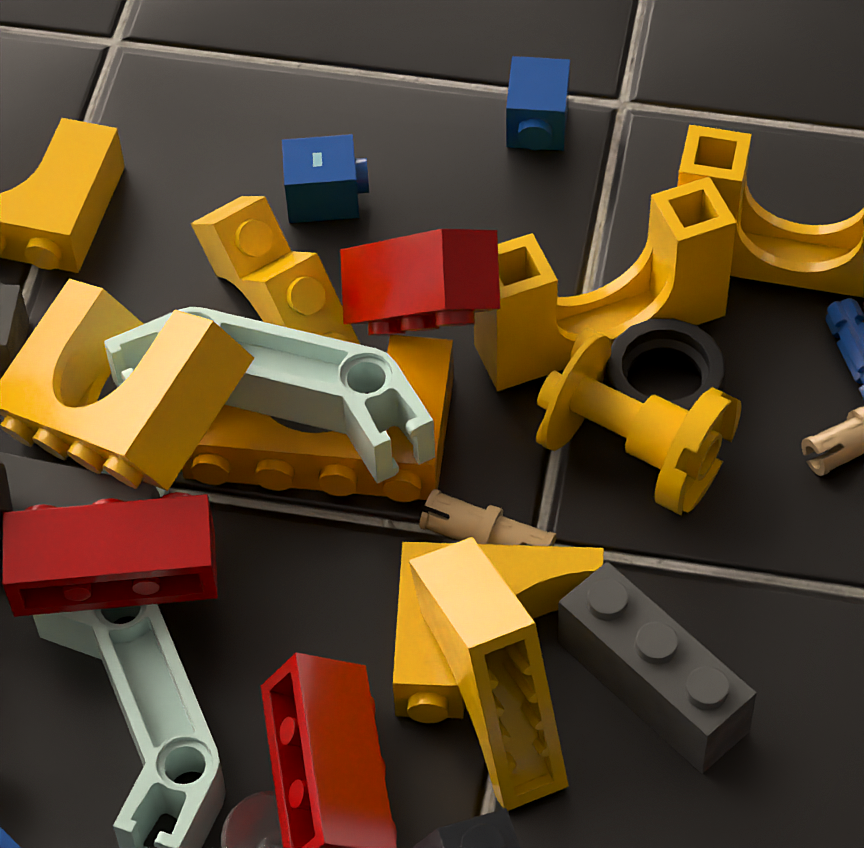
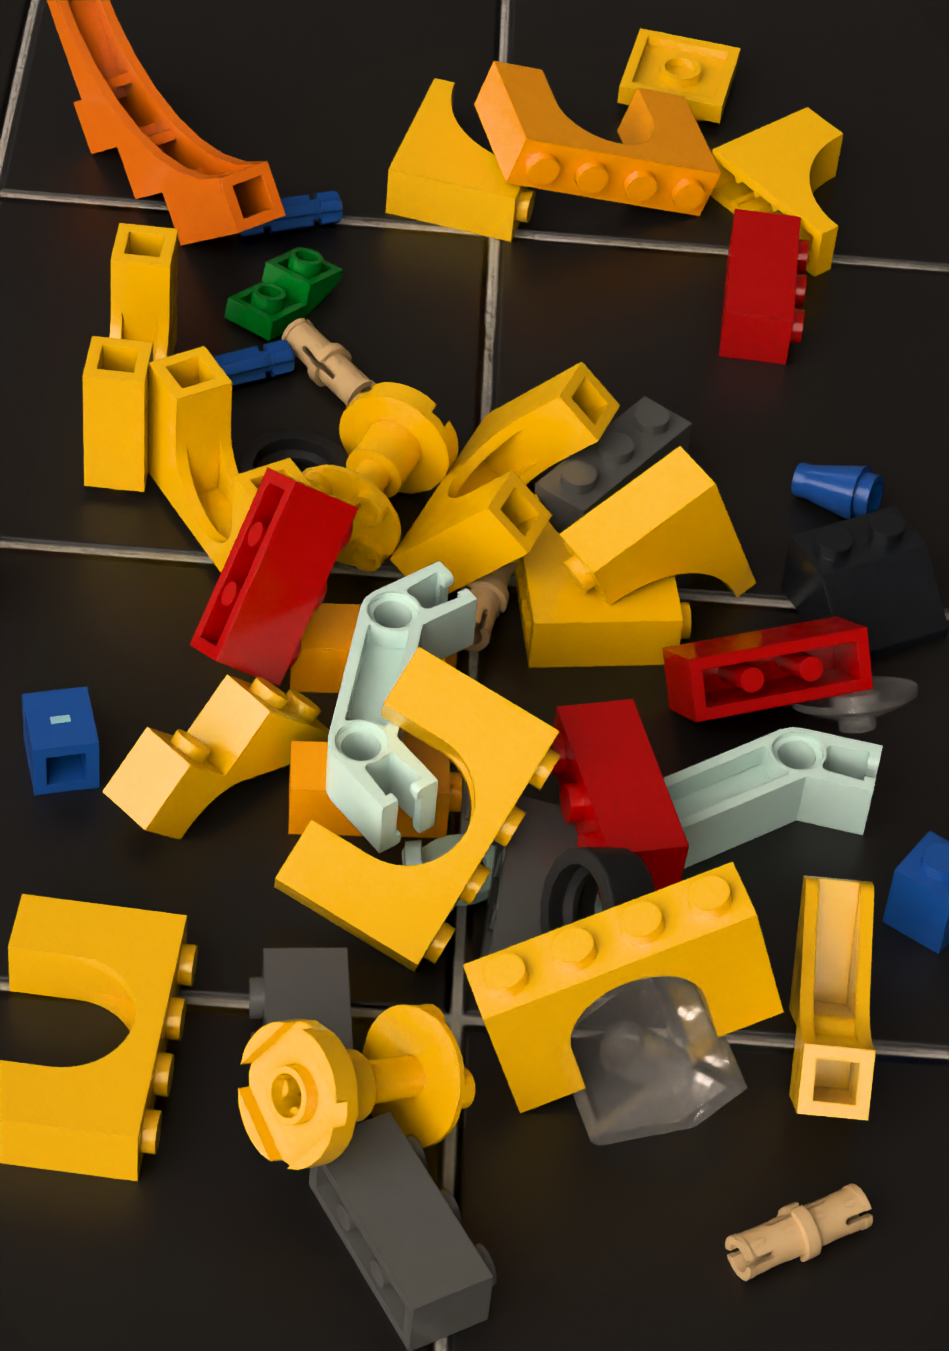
camera: 105 degrees left, 10 degrees down
(682, 565) = (482, 507): none -> yellow arch

